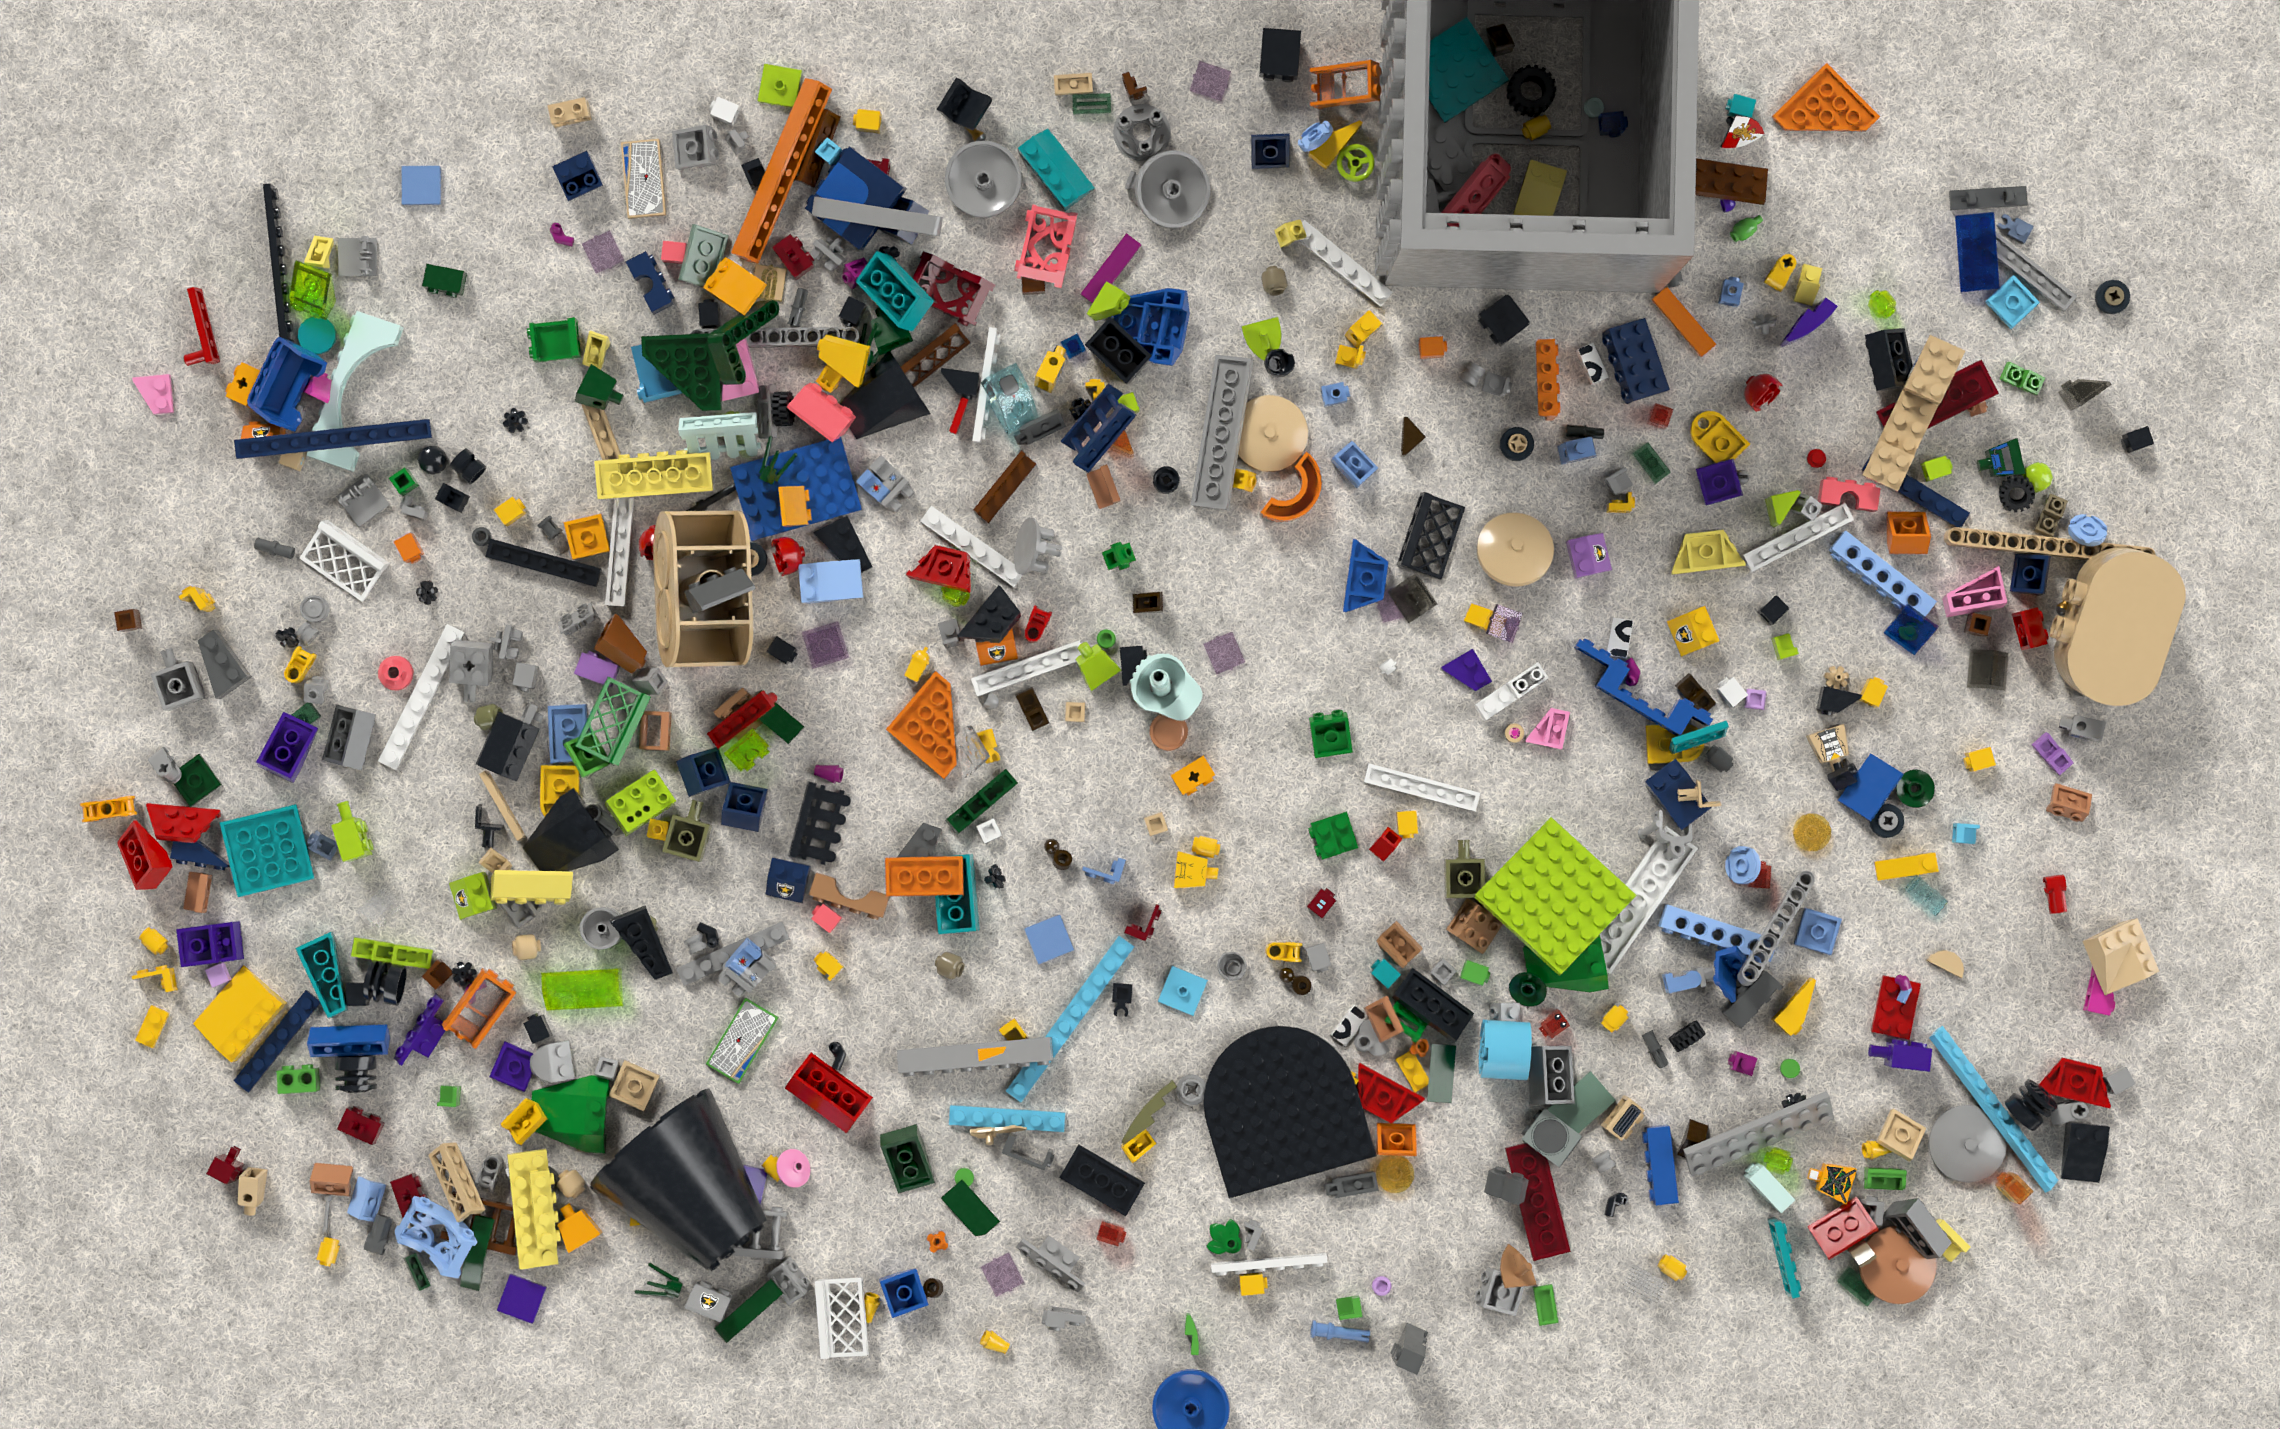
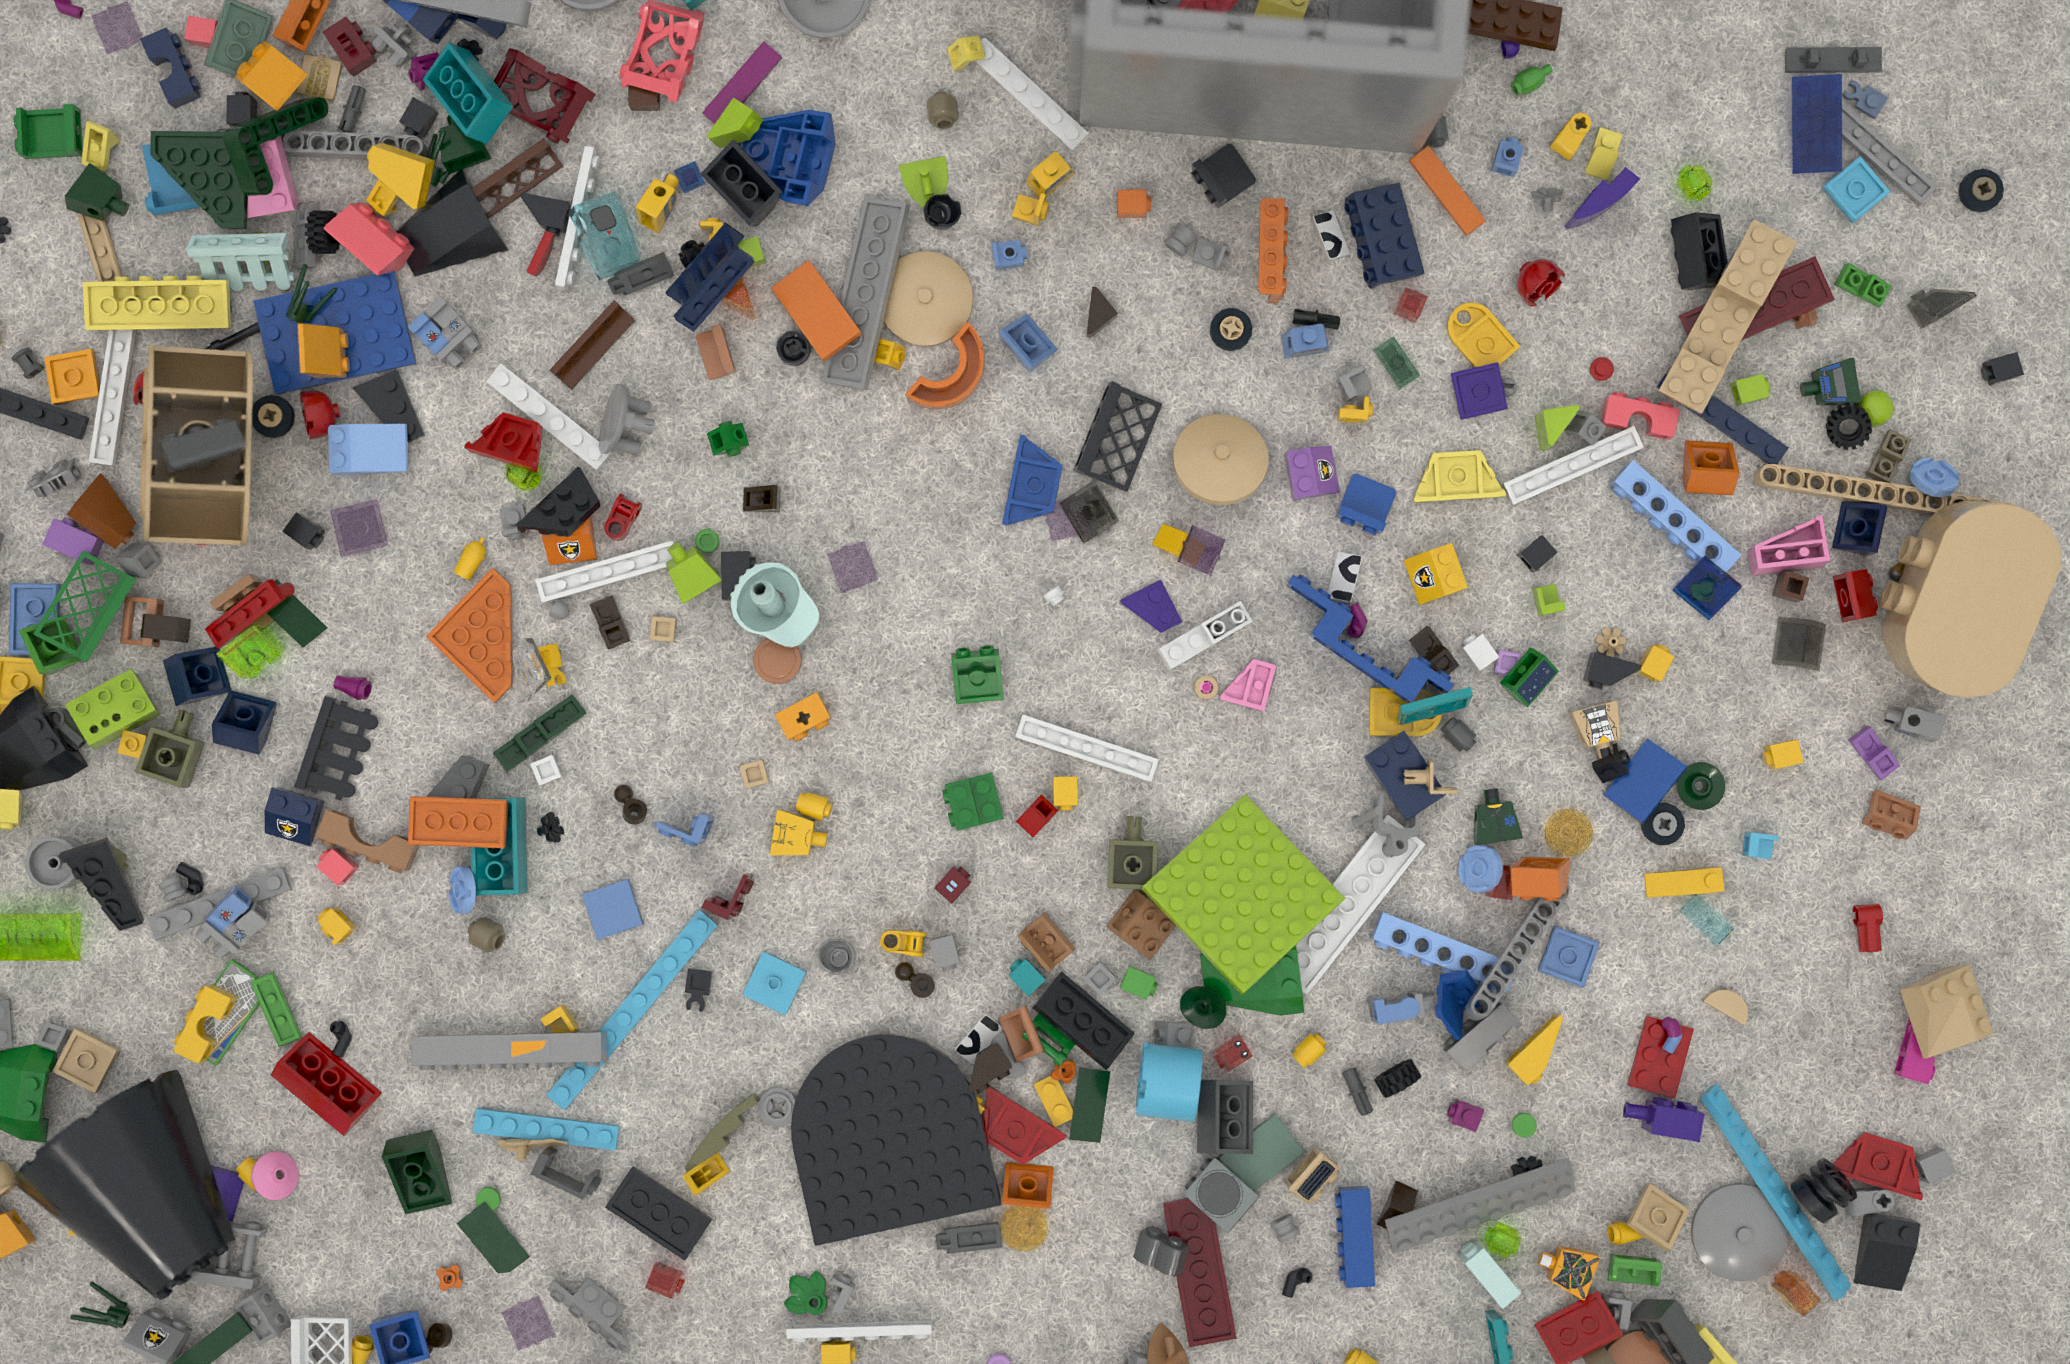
camera: 10 degrees right, 0 degrees up
(676, 734) = (165, 628): none -> dark brown slope
(721, 1064) = (193, 1040): none -> yellow arch
(784, 1035) = (276, 1009): none -> bright green tile
(929, 930) = (463, 890): none -> light blue tile
(1183, 448) = (816, 310): none -> orange tile
(1359, 1045) = (988, 1065): none -> dark brown slope
(1634, 578) = (1366, 504): none -> blue bracket
(1752, 825) = (1495, 820): none -> dark green torso
(1772, 709) = (1529, 677): none -> green brick
(1790, 869) = (1540, 877): none -> orange slope

